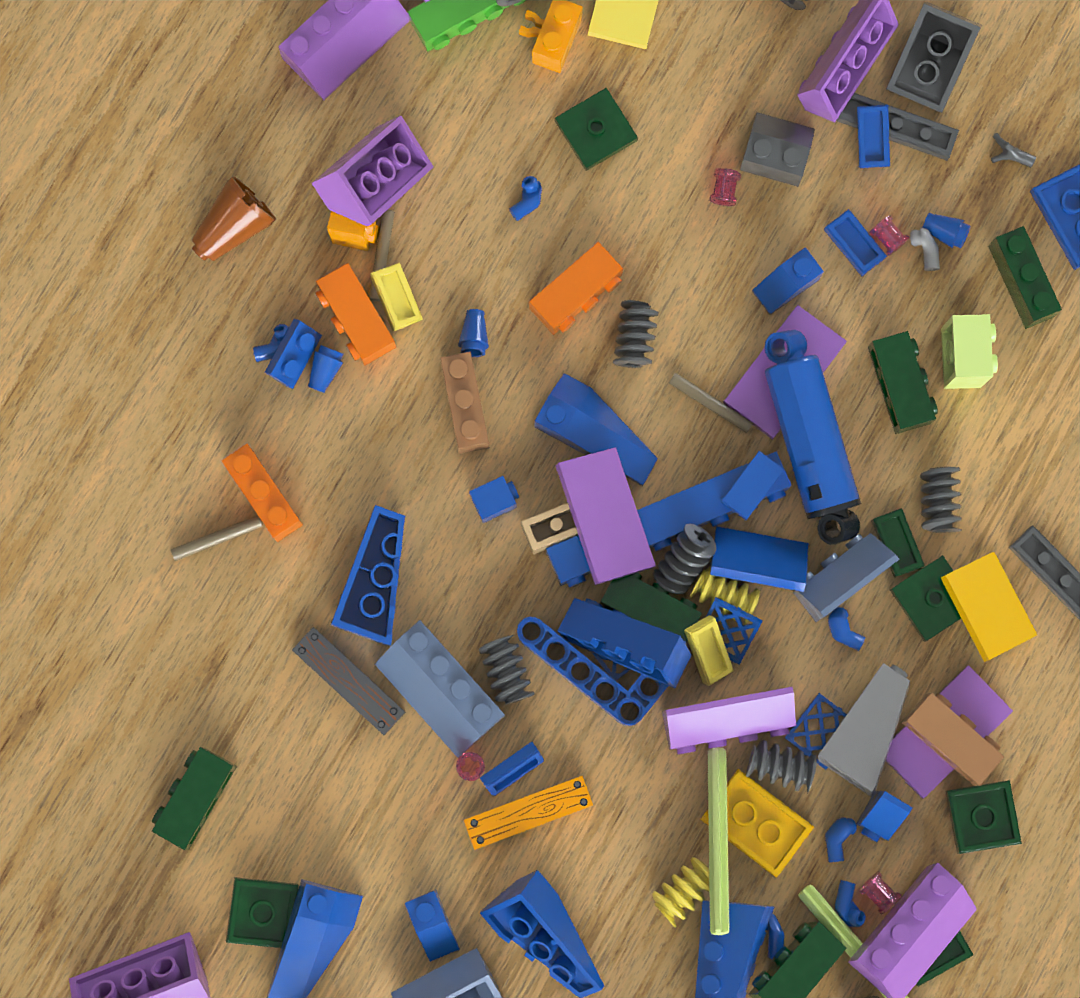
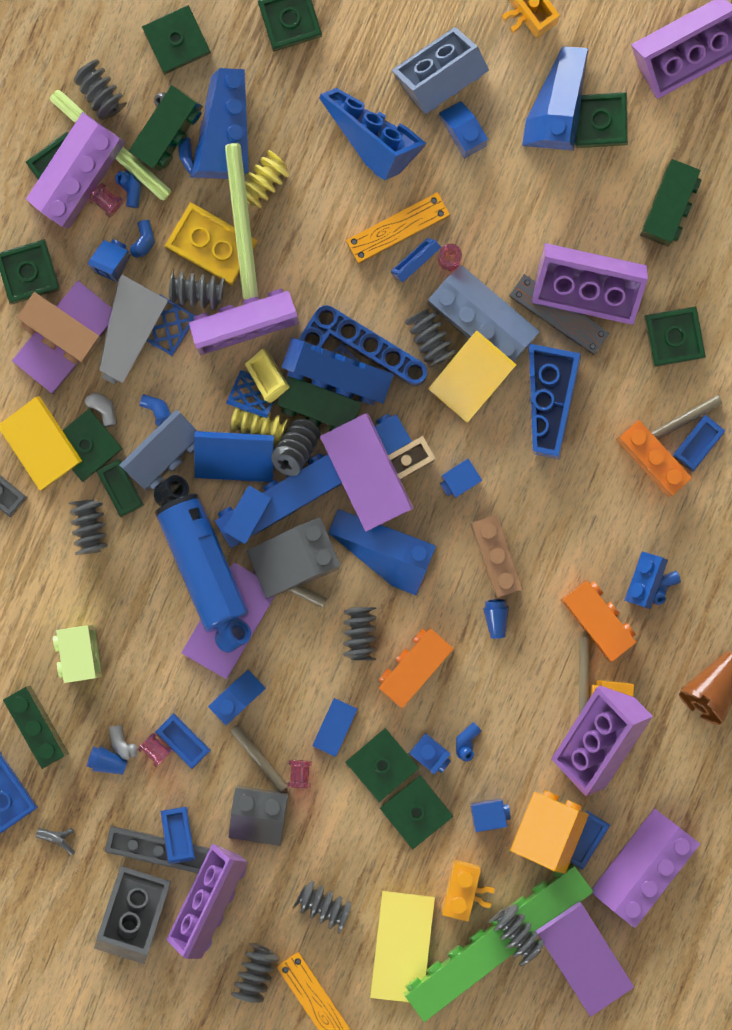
camera: 175 degrees right, 5 degrees up
(206, 506) = (698, 443): none -> blue tile
(214, 635) = (674, 336): none -> dark green plate
(306, 711) = (589, 284): none -> medium lavender slope
(324, 368) = (617, 574): blue cone -> none
(396, 297) = (566, 641): light yellow tile -> none
(408, 74) = (589, 840): none -> blue tile
(447, 83) = (550, 831): none -> light orange brick
(463, 616) = (472, 376): none -> yellow tile
(512, 113) = (490, 815): none -> blue brick
(570, 190) = (431, 754): none -> blue bracket
(628, 186) = (382, 764): none -> dark green plate
(677, 235) = (335, 727): none -> blue tile
(703, 430) = (294, 558): none -> dark grey slope
(715, 37) = (323, 905): none -> dark grey piece
(769, 212) = (259, 759): none -> dark tan bar
(902, 382) = (129, 623): dark green brick -> none
(907, 642) = (103, 405): none -> light grey arm

